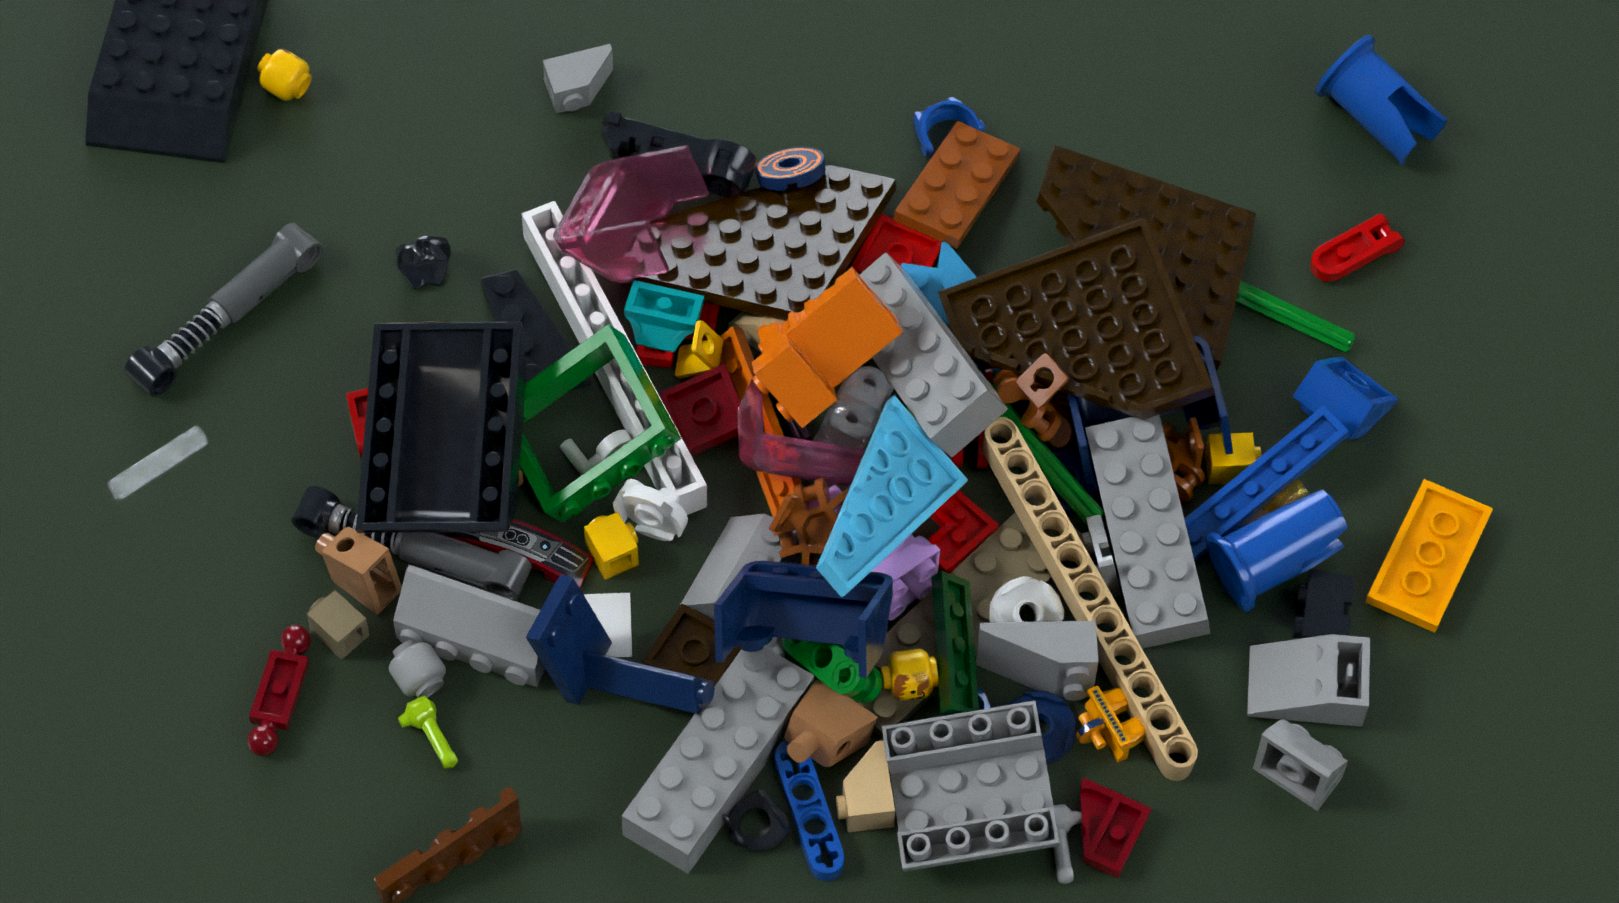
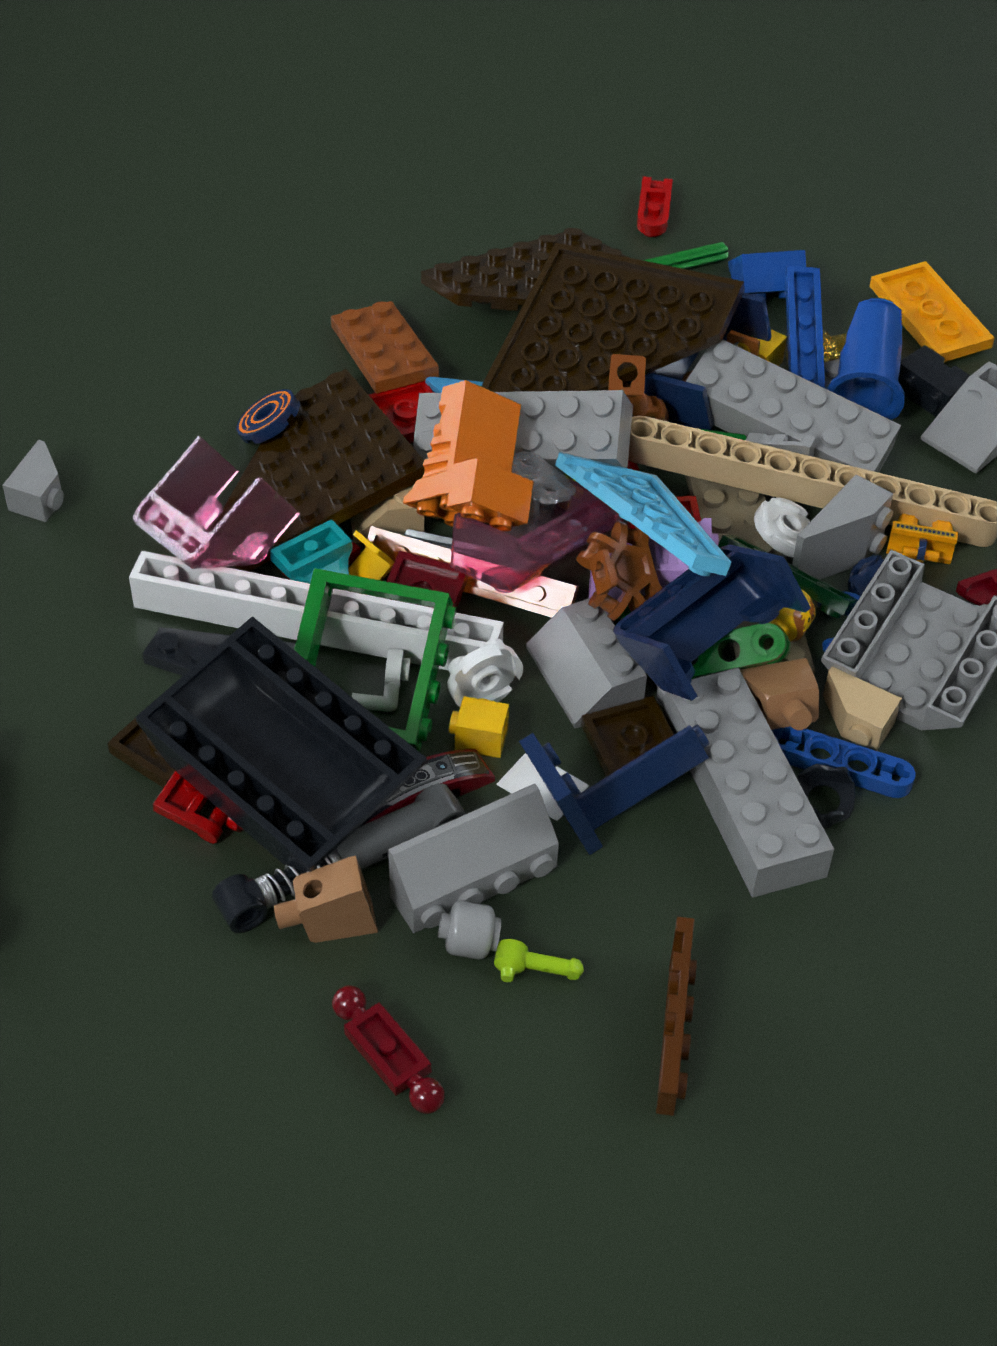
camera: 50 degrees left, 10 degrees down
(157, 463) = (58, 994): clear axle -> none
(337, 624) = (366, 959): dark tan brick -> none
(422, 264) = (82, 679): black piece -> none
(722, 163) = (126, 484): black piece -> none
(944, 110) = (315, 315): blue helmet -> none
(1380, 99) = (562, 121): blue piece -> none

